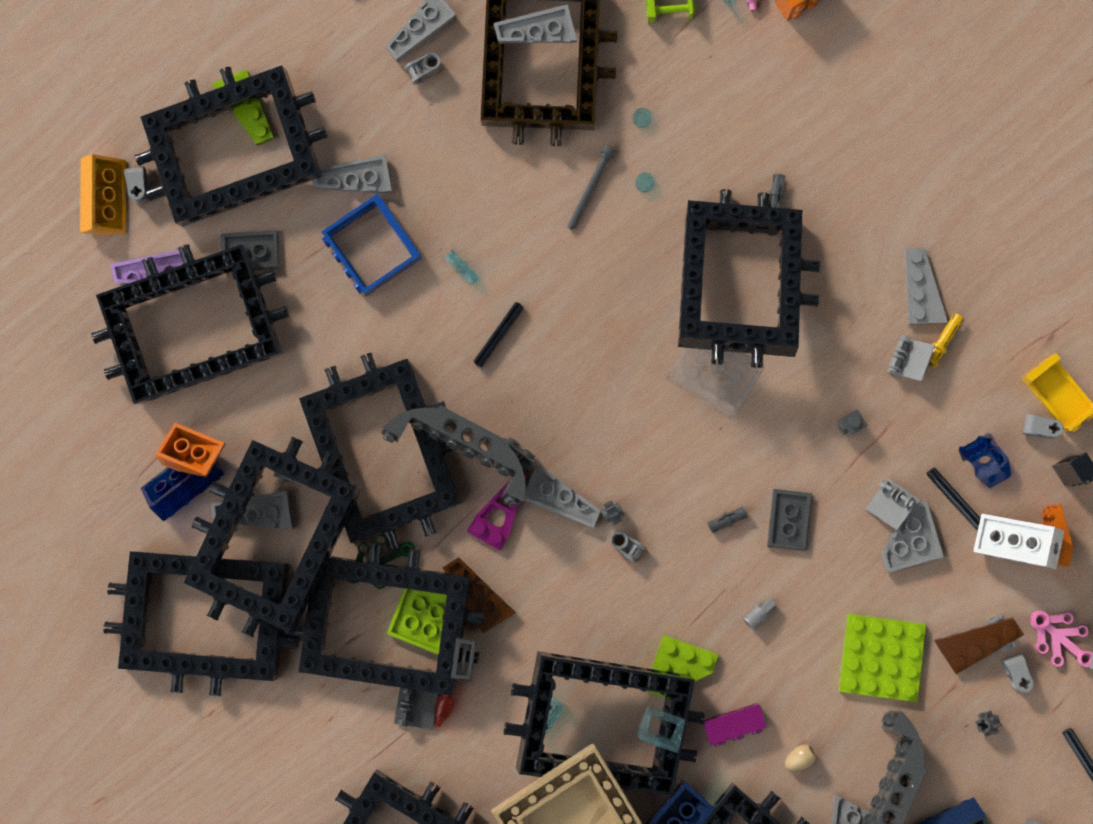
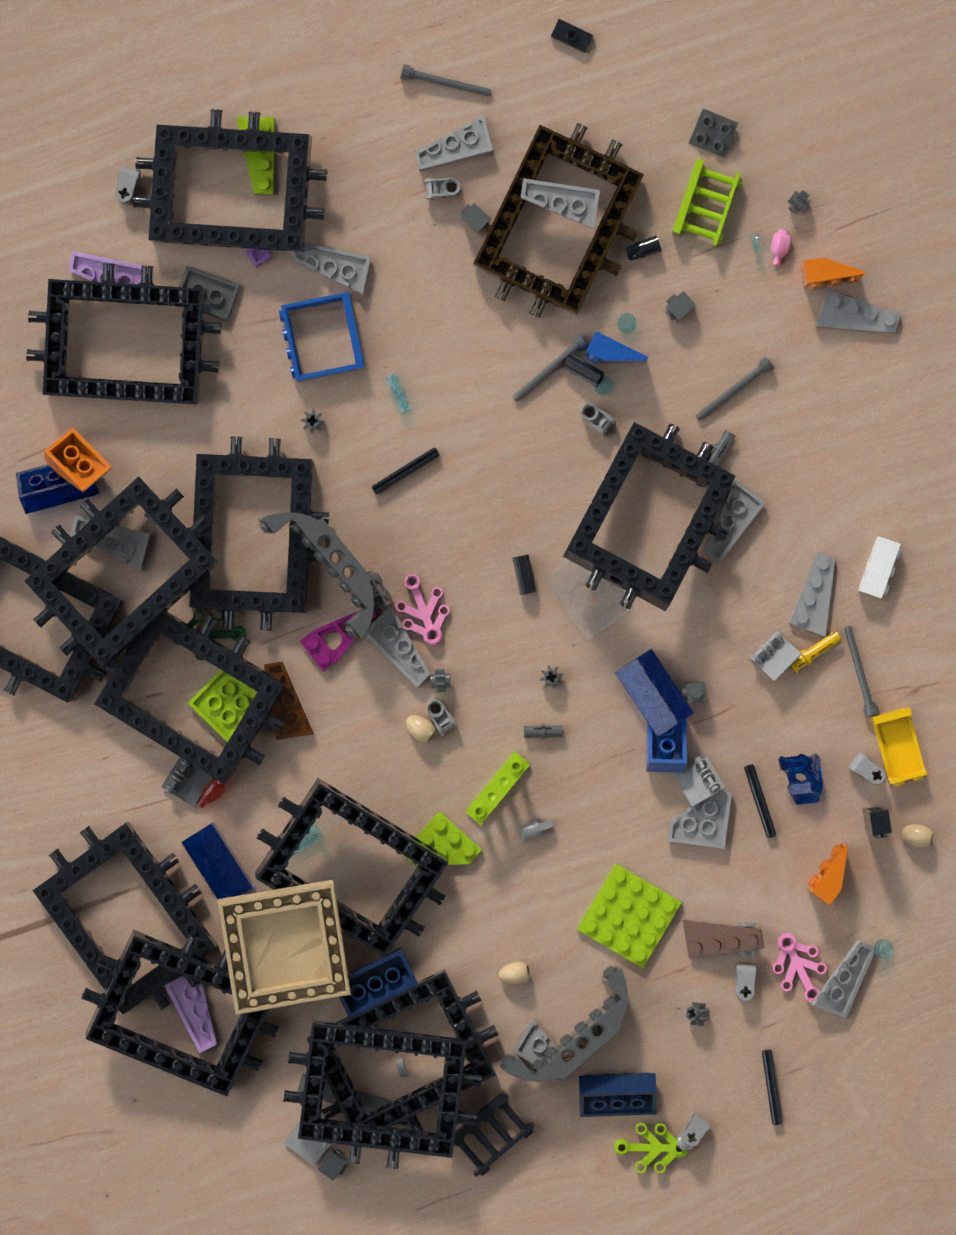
camera: 15 degrees right, 5 degrees up
(103, 195) = (90, 182): light orange slope -> none
(283, 198) = (258, 257): none -> medium lavender tile
(389, 322) = (316, 425): none -> dark grey gear
(465, 80) = (475, 218): none -> dark grey brick
(465, 642) = (256, 742): dark grey tile -> none
(477, 773) = (217, 862): none -> clear blue slope
(570, 456) = (424, 613): none -> bright pink plant
(613, 564) = (420, 728): none -> tan animal
(622, 174) = (584, 370): none -> black axle
(629, 45) = (643, 248): none -> black hinge
(639, 146) = (607, 350): none -> blue slope
(647, 382) = (524, 574): none -> black axle
(654, 213) = (598, 419): none -> light grey piece
(658, 740) = (394, 903): clear light blue tile -> none
(683, 82) = (679, 306): none -> dark grey brick
(709, 589) = (497, 787): none -> lime fence
(719, 466) = (547, 674): none -> dark grey gear
(734, 724) = (468, 918): magenta brick -> none
(783, 103) = (763, 367): none -> dark grey piece
(789, 520) = (599, 755): dark grey tile -> none
(815, 439) = (654, 692): none -> clear blue slope
(817, 244) = (735, 516): none -> light grey wing
(840, 25) = (849, 313): none -> light grey wing
(845, 480) = (668, 750): none -> blue slope
(969, 238) = (880, 567): none -> white brick
(1000, 538) = (795, 863): white brick -> none
(1017, 368) = (870, 706): none -> dark grey piece

